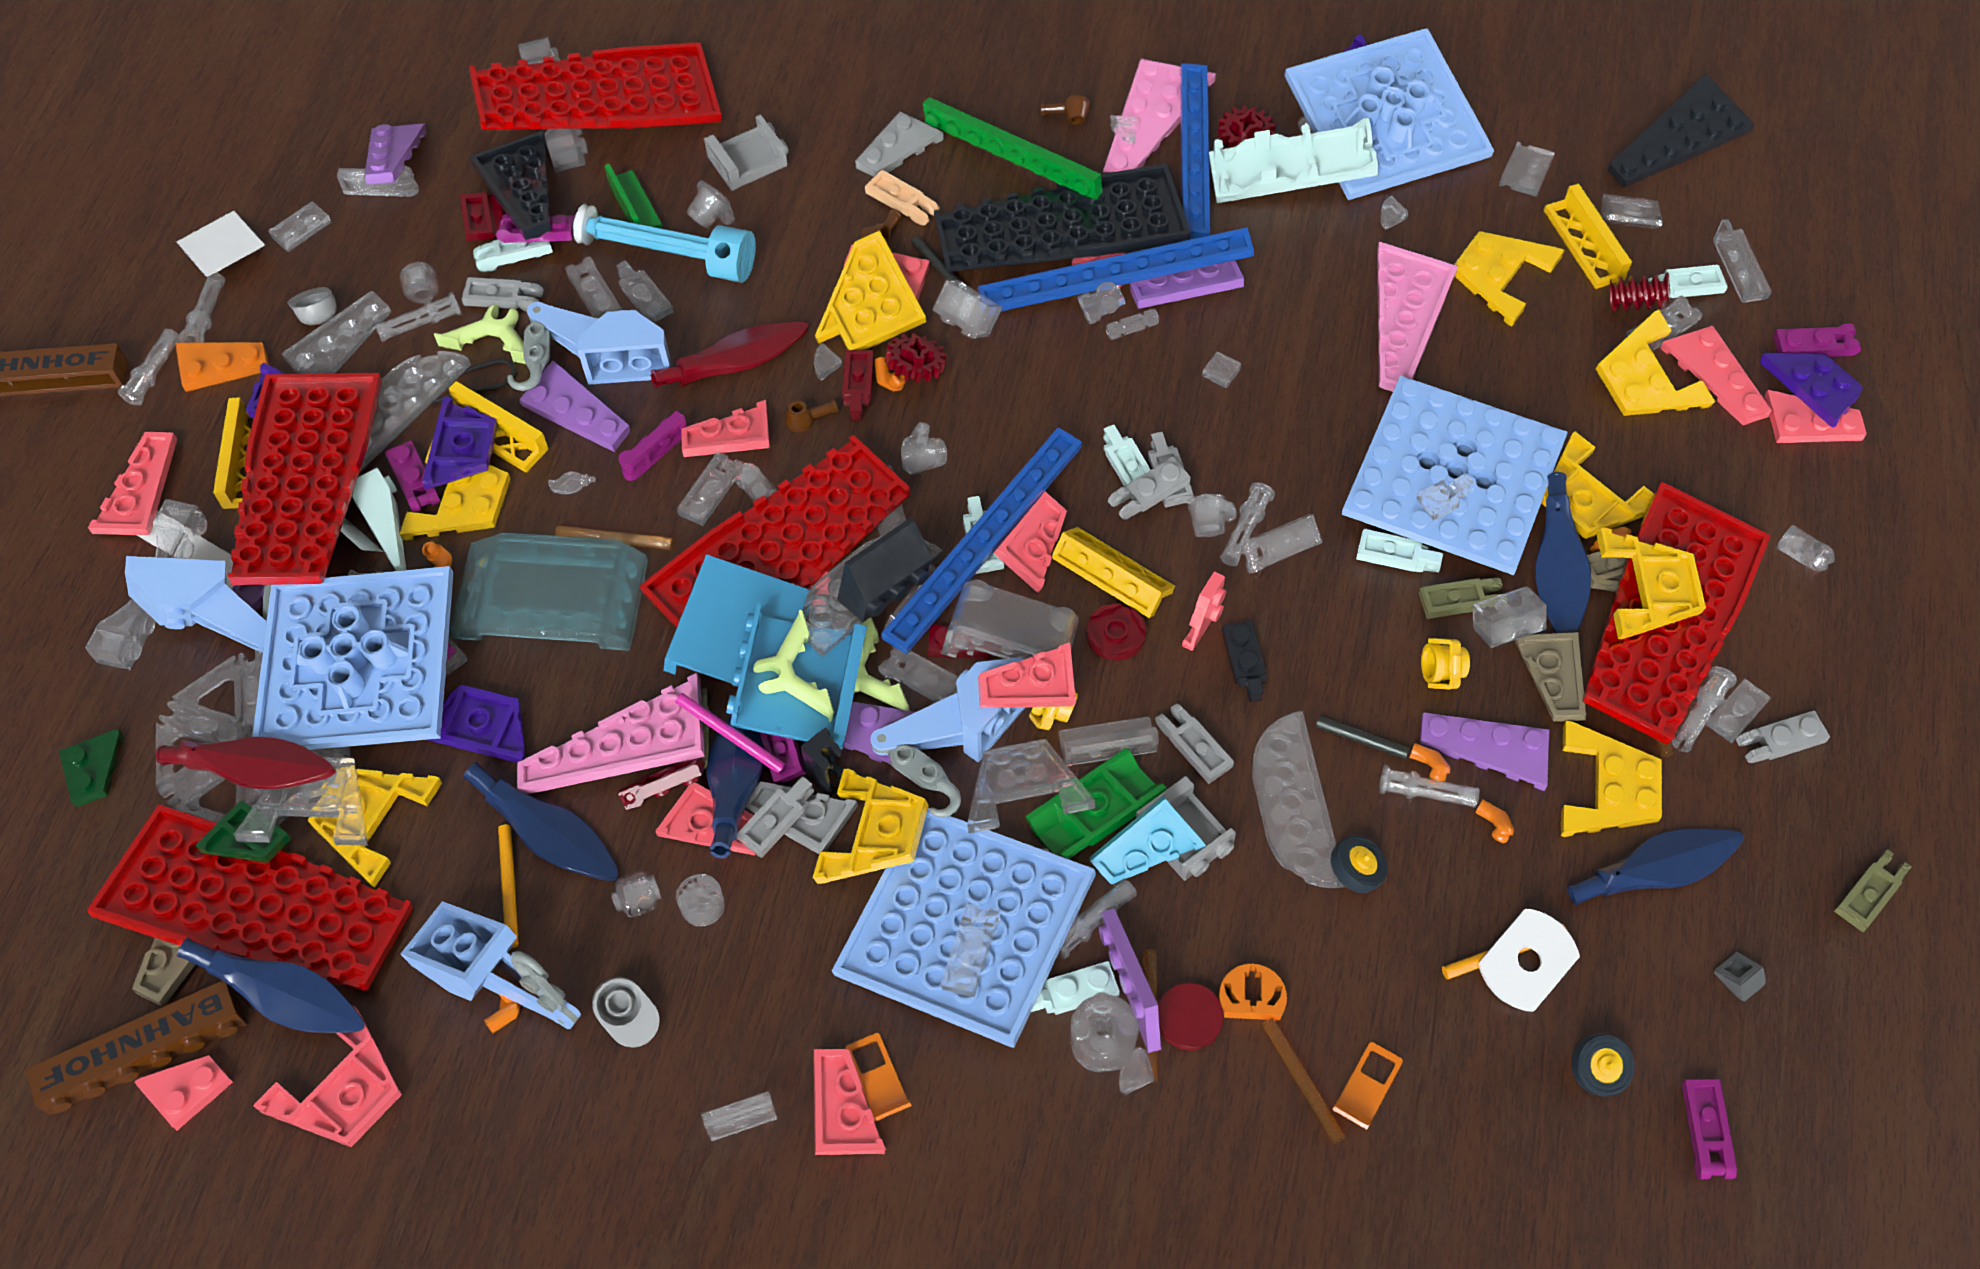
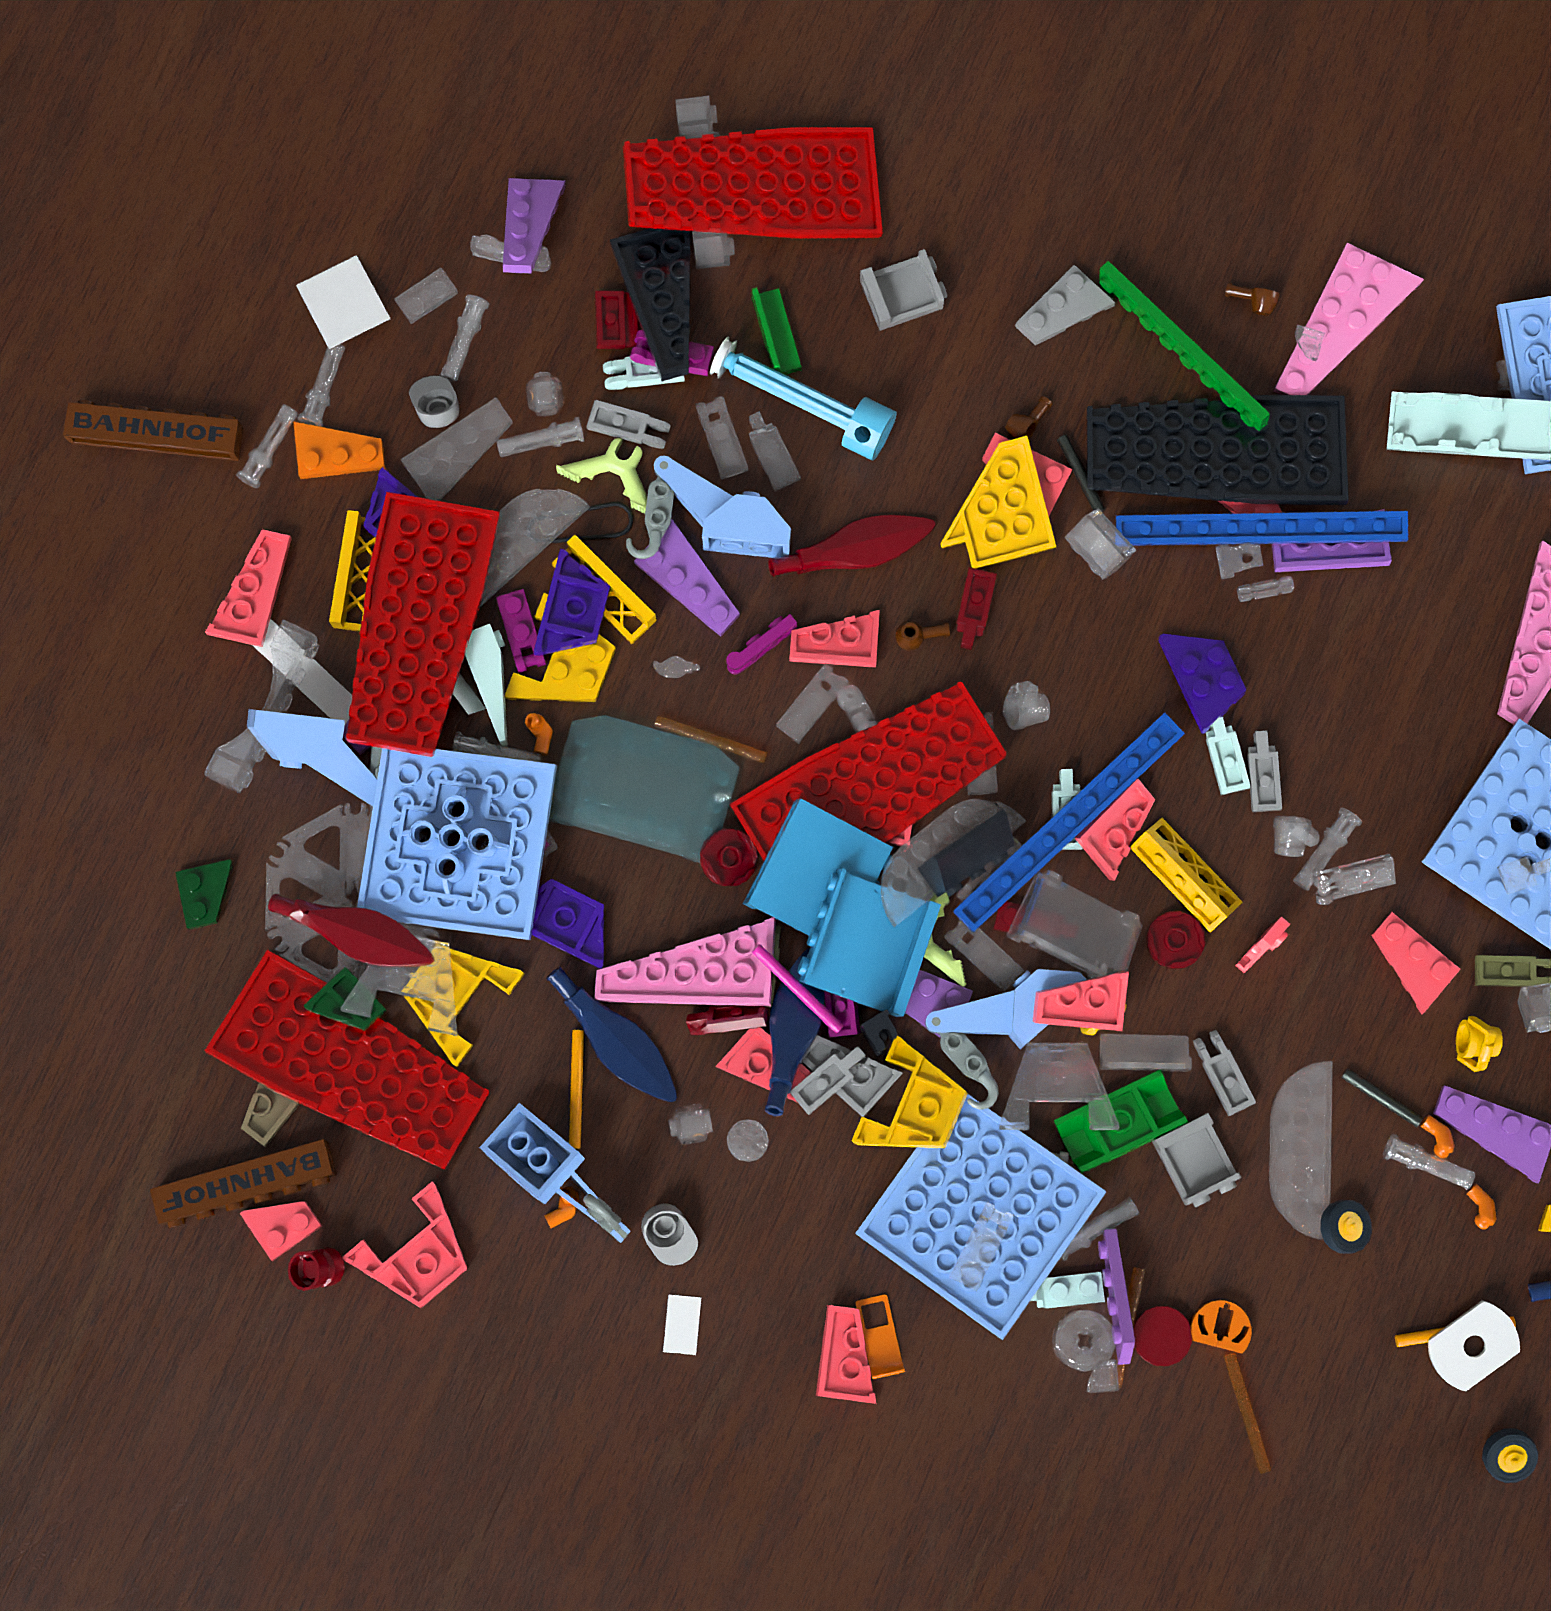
camera: 10 degrees right, 20 degrees up
(221, 1120) = (316, 1268): none -> dark red wheel
(279, 990) = (371, 1159): dark blue animal -> none
(342, 242) = (467, 325): none -> clear pin
(643, 633) = (728, 857): none -> dark red tile
(653, 1110) = (682, 1324): none -> white sticker
(709, 206) = (854, 357): clear piece -> none
(739, 1116) = (770, 1348): clear plate -> none
(787, 679) = (856, 929): yellowish green piece -> none
(825, 362) = (945, 572): clear tile -> none
(886, 378) = (1004, 606): orange arm -> none
(901, 197) = (1055, 379): light nougat hinge -> none
(915, 358) = (1037, 592): dark red gear -> none
(1090, 399) = (1204, 675): none -> dark purple wing
(1148, 840) = (1161, 1168): medium azure wing -> none
(1150, 488) = (1243, 795): light grey hinge -> none
(1195, 148) = (1378, 380): blue plate -> none
(1221, 369) = (1343, 661): clear tile -> none
(1242, 125) = (1426, 358): dark red gear -> none
(1245, 658) = (1292, 993): black hinge -> none
(1362, 607) = (1417, 962): none -> coral wing
(1363, 1094) = (1297, 1434): orange piece -> none
(1397, 552) = (1464, 909): light aqua hinge -> none

